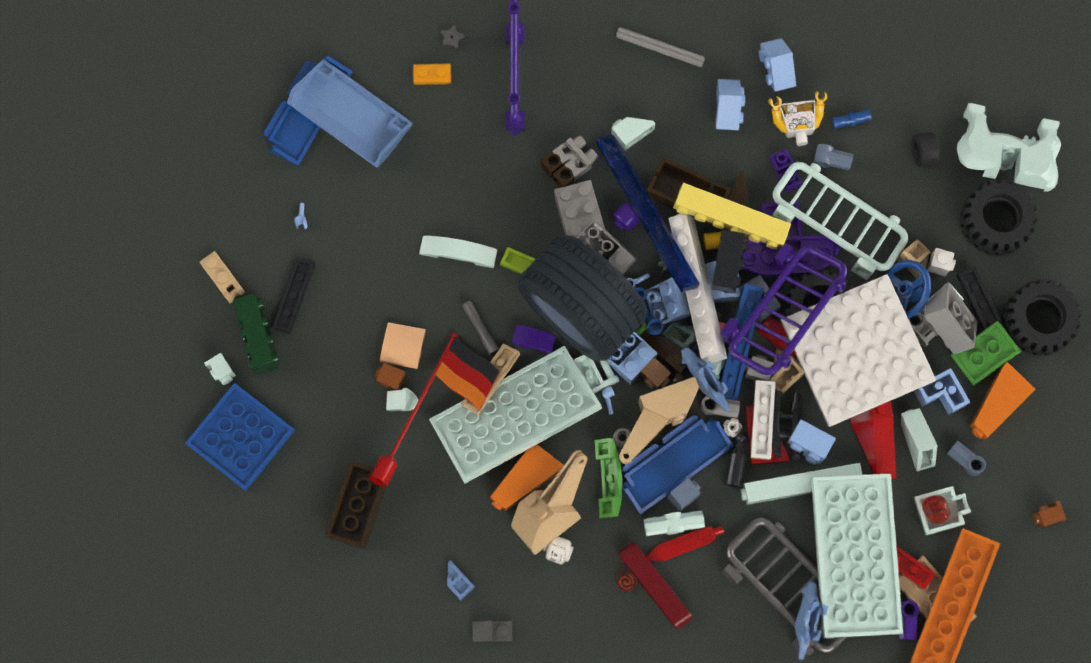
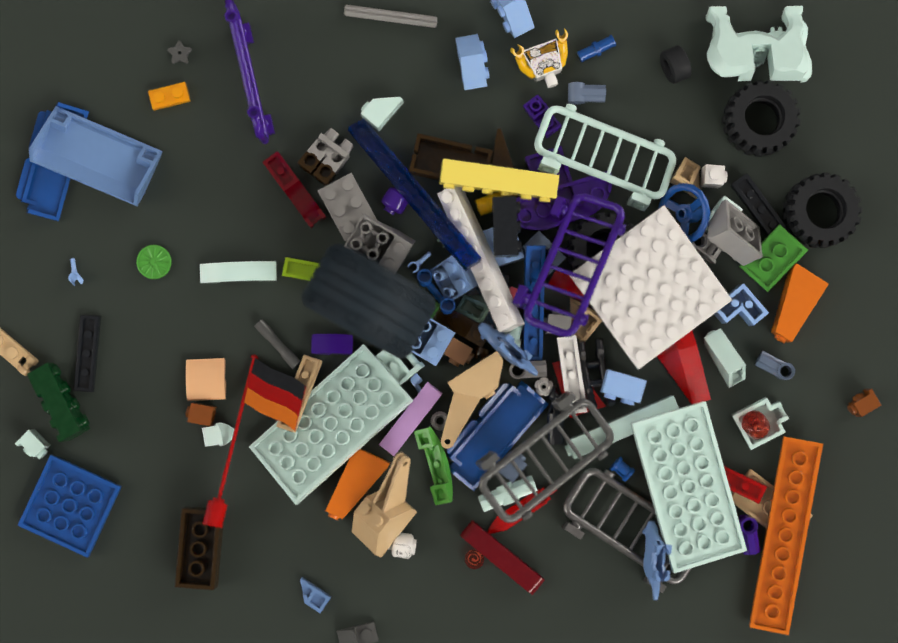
camera: 15 degrees left, 10 degrees up
(379, 223) = (153, 262): none -> bright green wheel
(530, 185) = (294, 189): none -> dark red piece
(595, 427) = (410, 418): none -> lavender slope
(667, 487) = (489, 460): none -> dark grey bar
(793, 525) = (622, 469): none -> blue bush

